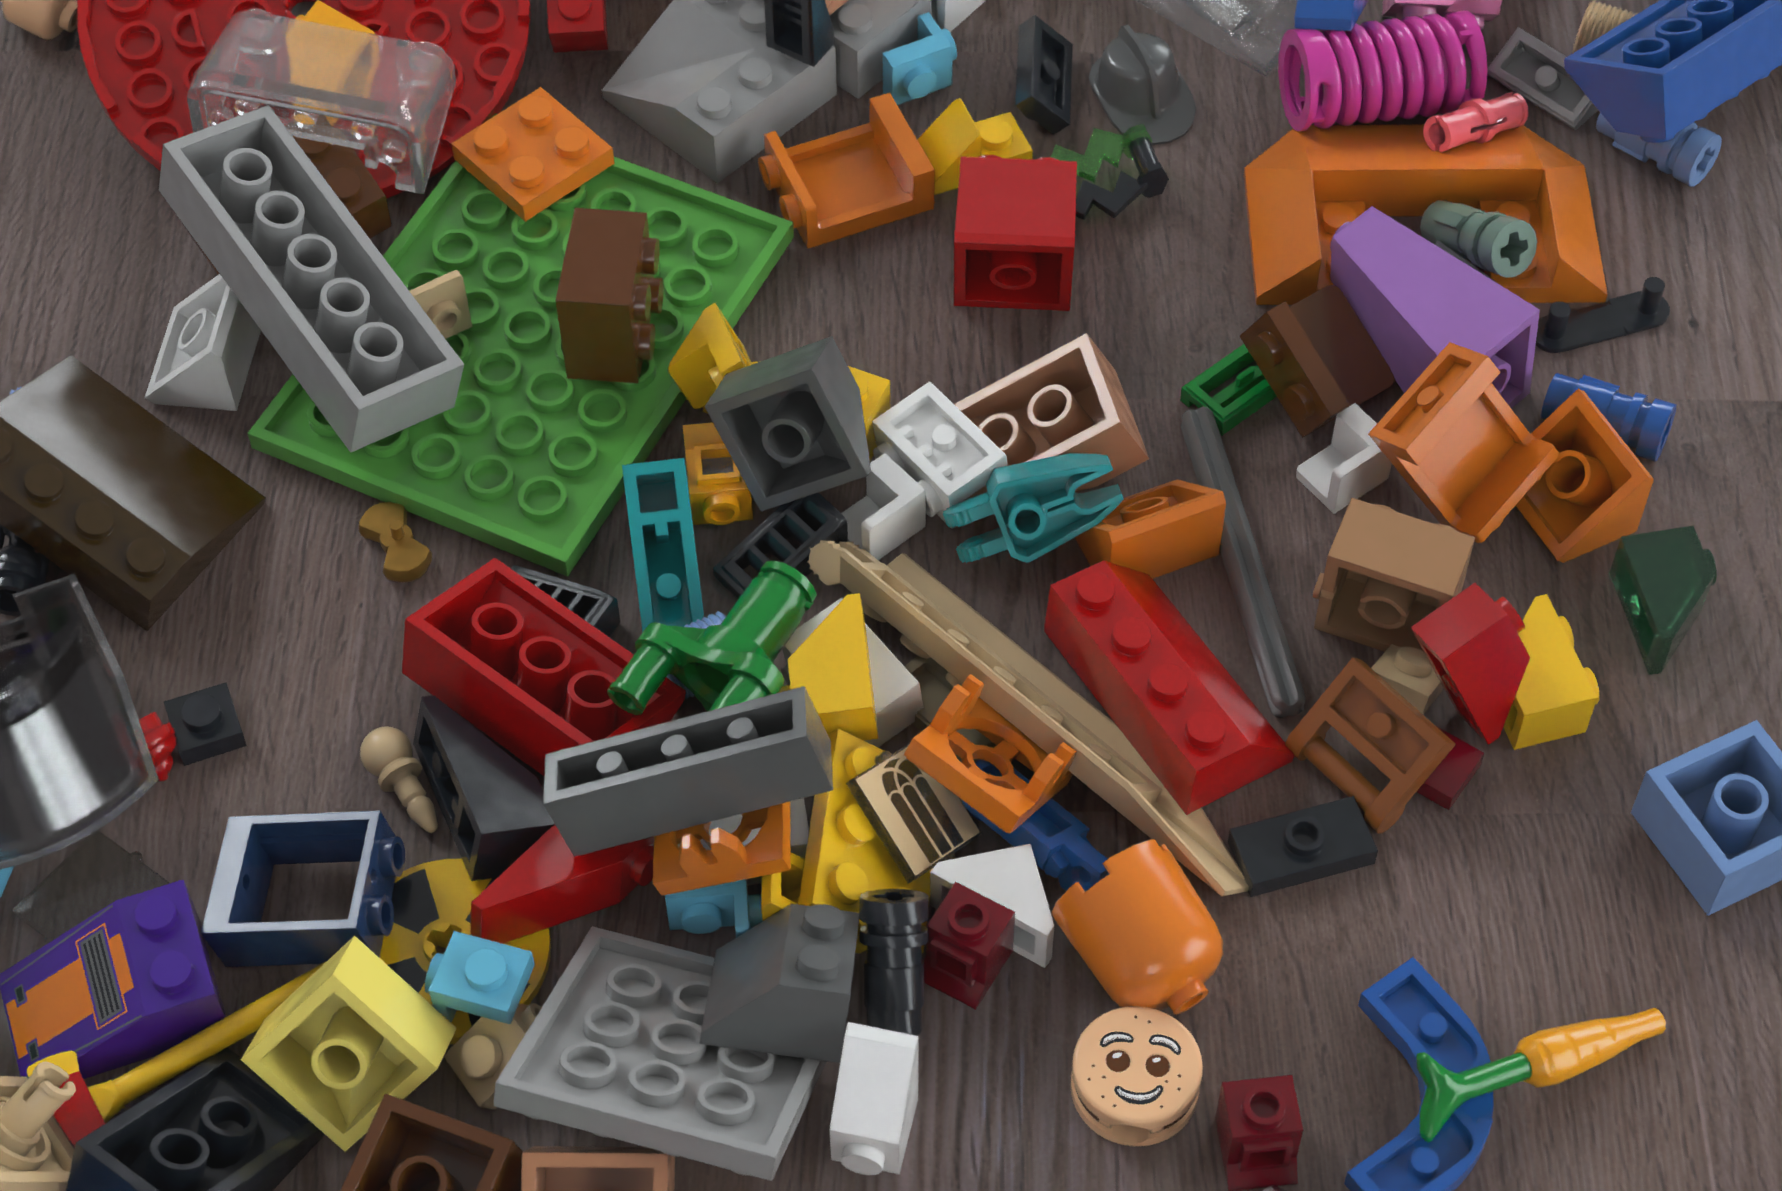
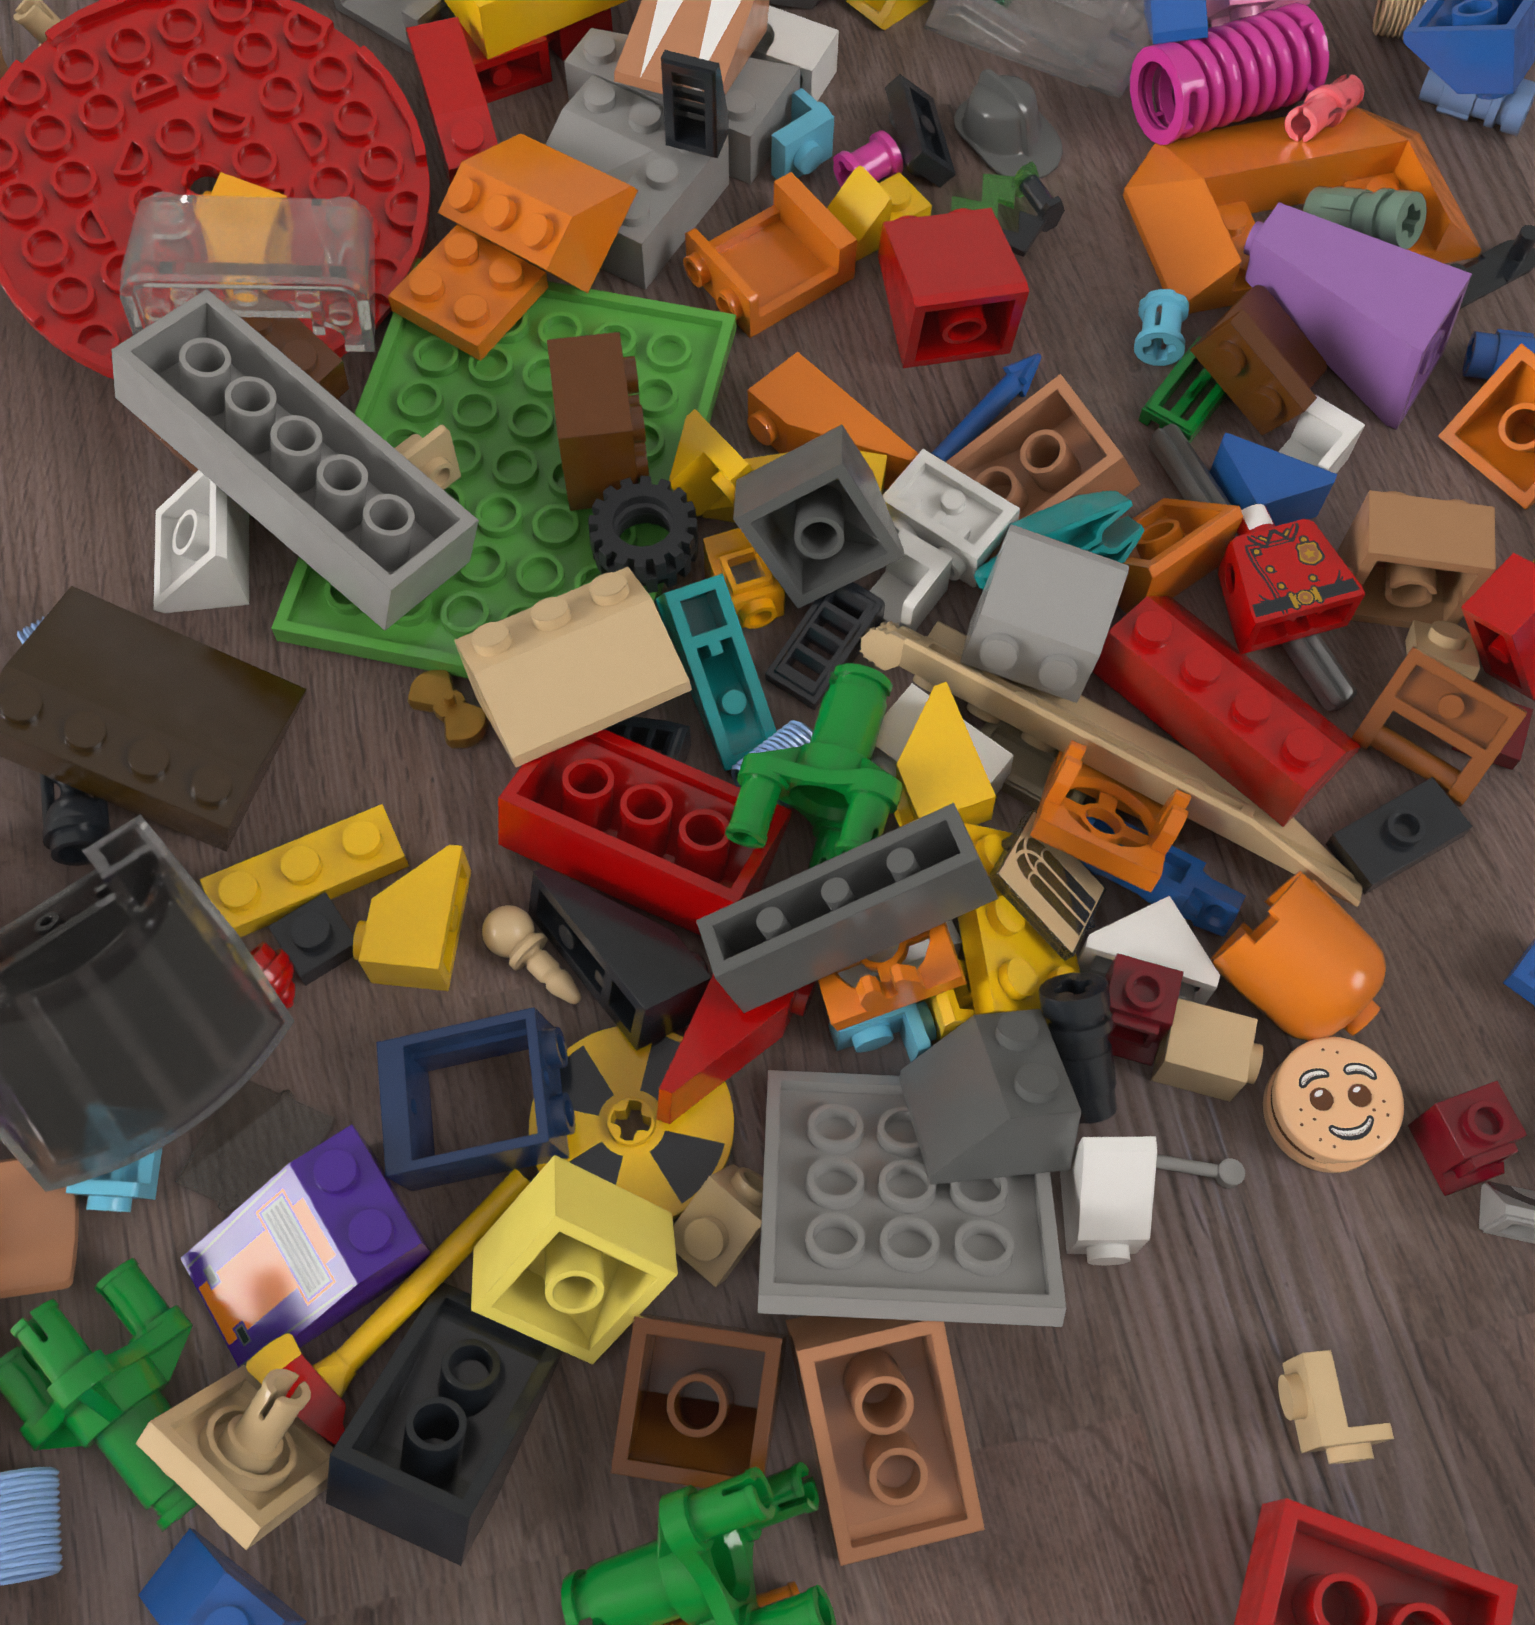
camera: 15 degrees left, 10 degrees up
(240, 655) = (293, 874): none -> yellow plate
(302, 727) = (416, 924): none -> yellow slope
(478, 978) = (683, 1161): medium azure bracket -> none
(513, 514) = (572, 665): none -> tan slope
(621, 384) = (640, 505): none -> black tyre
(623, 84) = (540, 207): none -> orange slope
(830, 308) = (803, 403): none -> orange slope
(983, 96) = (879, 157): none -> dark pink bush
(993, 558) = (1044, 613): none -> light grey slope
(1015, 1119) = (1227, 1173): none -> light grey hinge
(1025, 998) = (1208, 1051): none -> tan brick
(1062, 333) = (1015, 382): none -> blue piece
(1228, 311) = (1161, 326): none -> medium azure bush
(1254, 576) = (1284, 582): none -> red torso
(1284, 488) = (1263, 476): none -> blue slope
(1462, 443) = (1433, 417): orange panel -> none
(1540, 77) = (1376, 60): light grey slope -> none

